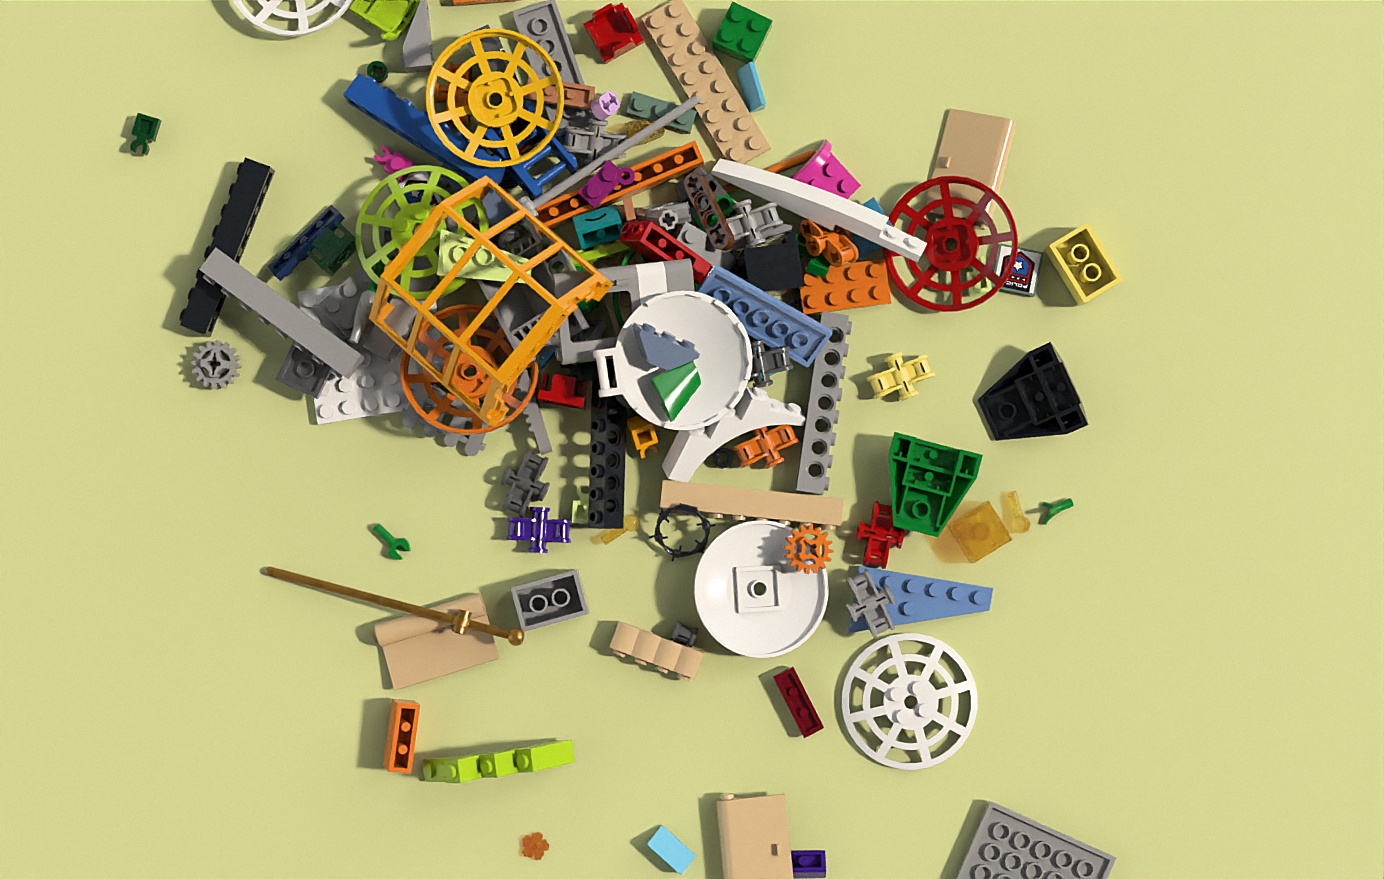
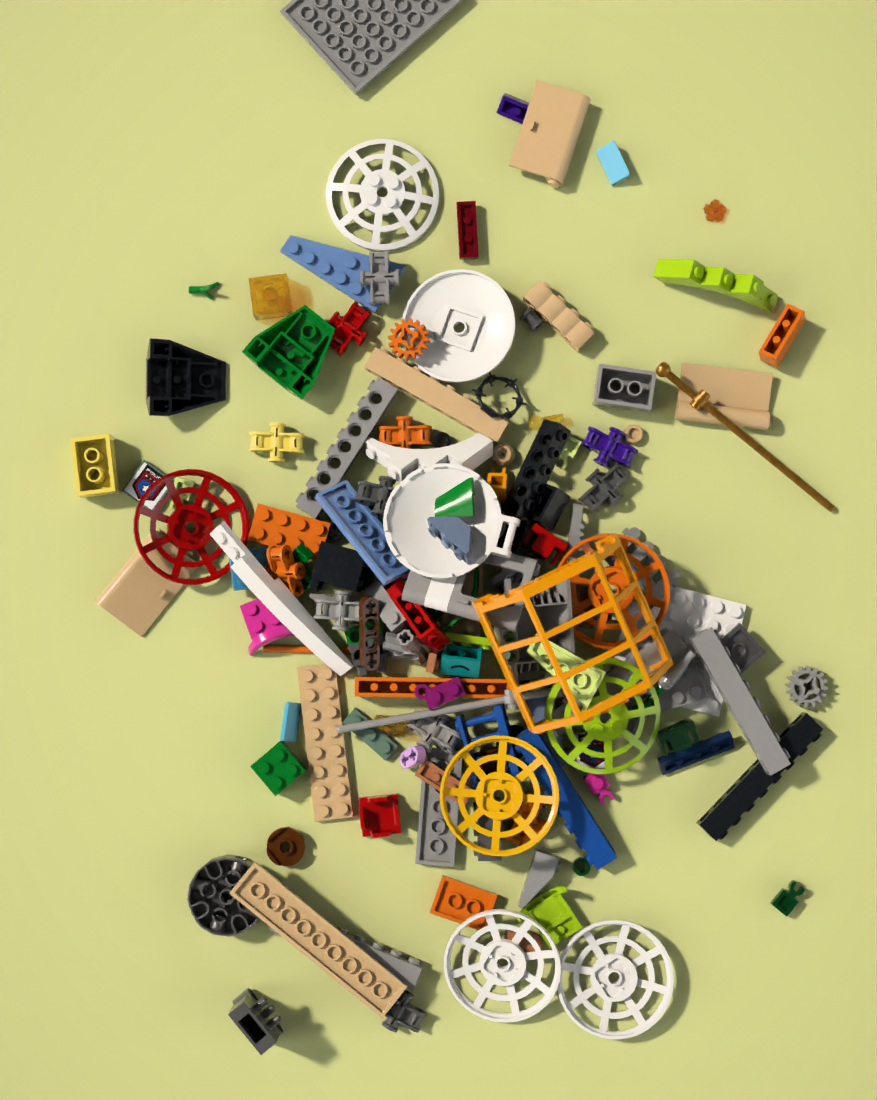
camera: 155 degrees left, 0 degrees up
(392, 542) = (726, 488): green bar -> none
(519, 557) = (633, 434): none -> tan tile
(574, 435) = (550, 507): none -> black slope
(644, 475) = (501, 460): none -> tan plate
(1021, 523) = (235, 290): clear yellow bar -> none

